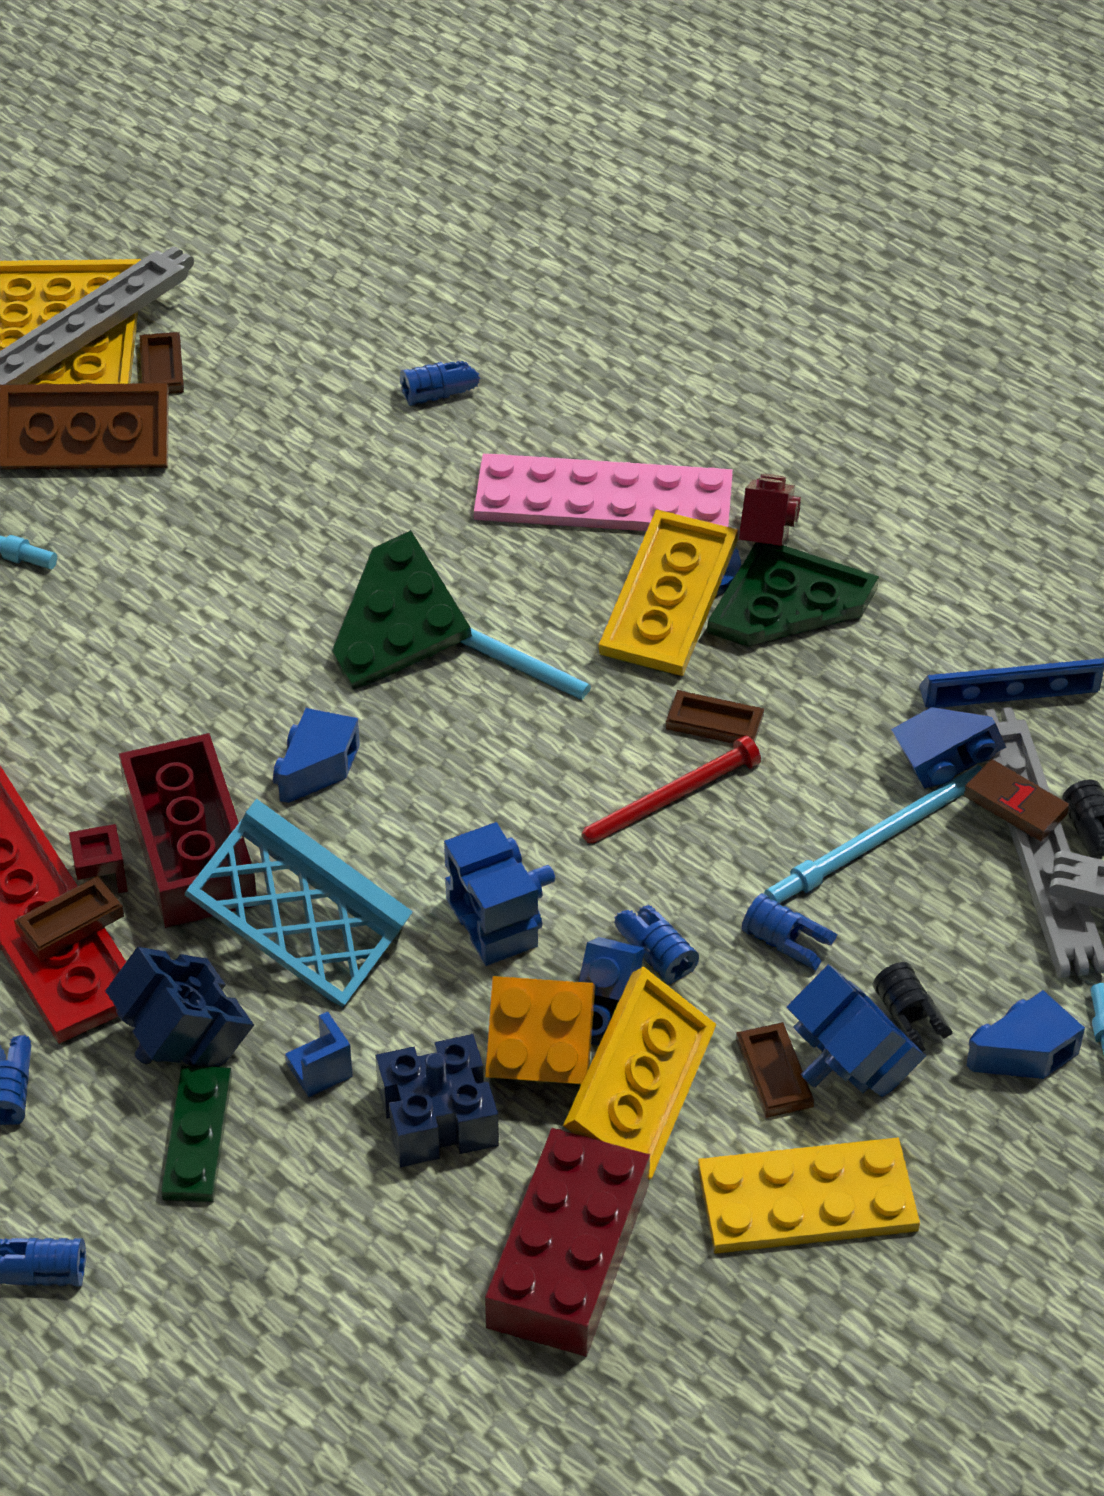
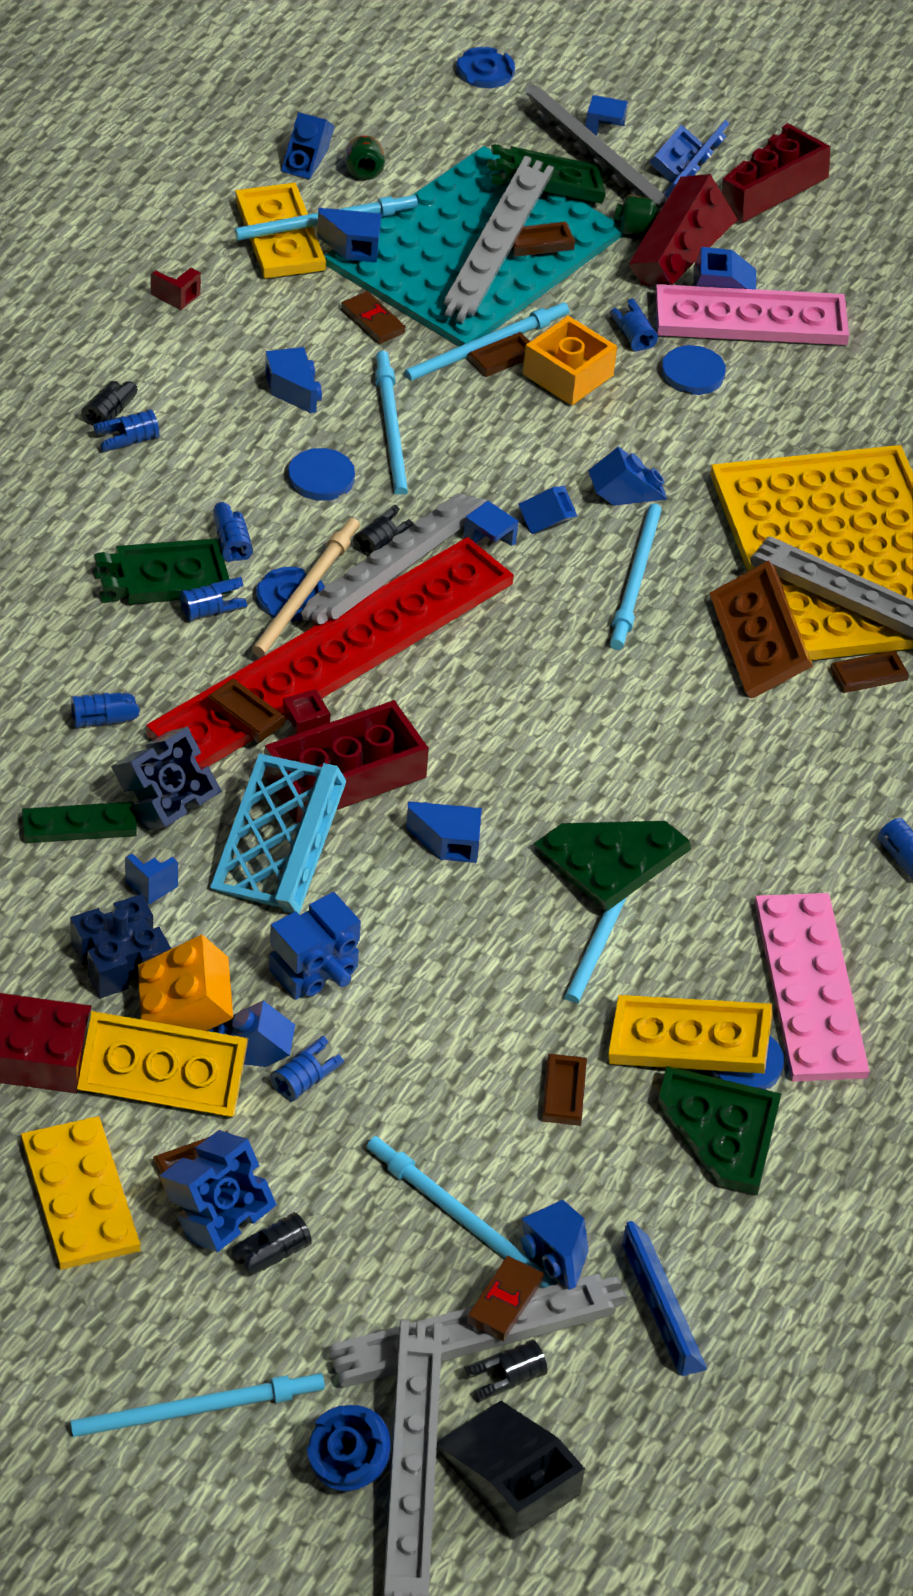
camera: 75 degrees right, 0 degrees up
(744, 752) = (525, 1110): red bar -> none
(769, 510) = (798, 1086): dark red brick -> none
(782, 926) = (339, 1144): blue hinge -> none
(1027, 1041) = (251, 1325): blue slope -> none

